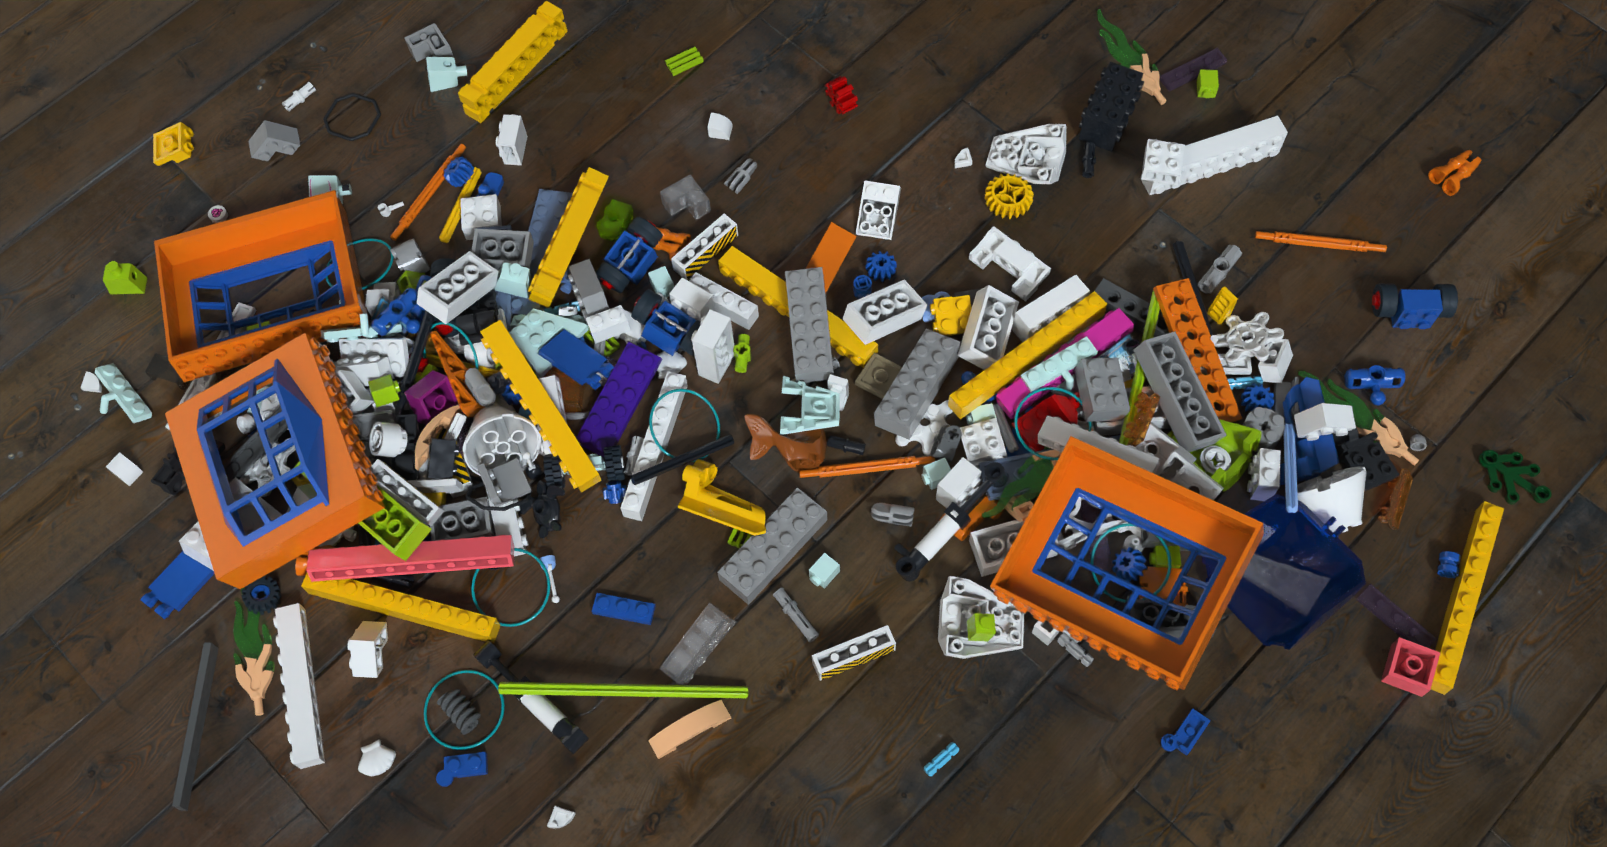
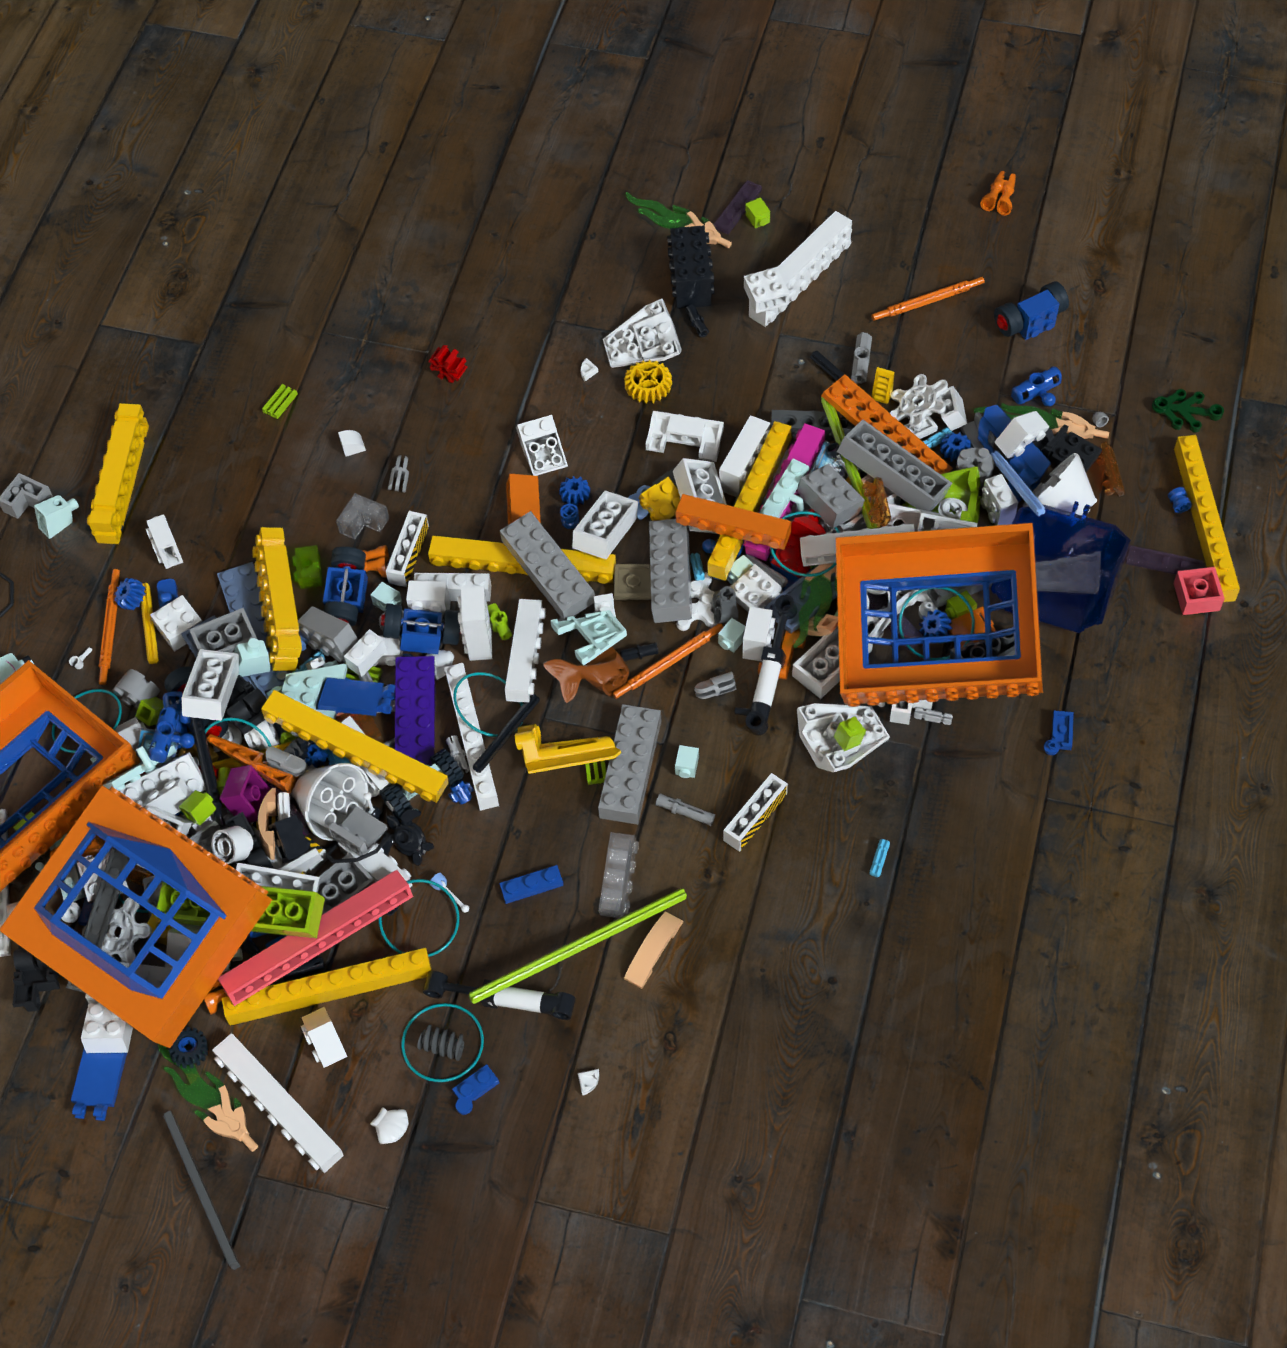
camera: 30 degrees left, 5 degrees down
(745, 392) = (524, 650): none -> white brick
(945, 392) = (697, 566): none -> medium azure axle
(993, 370) = (733, 521): none -> orange brick

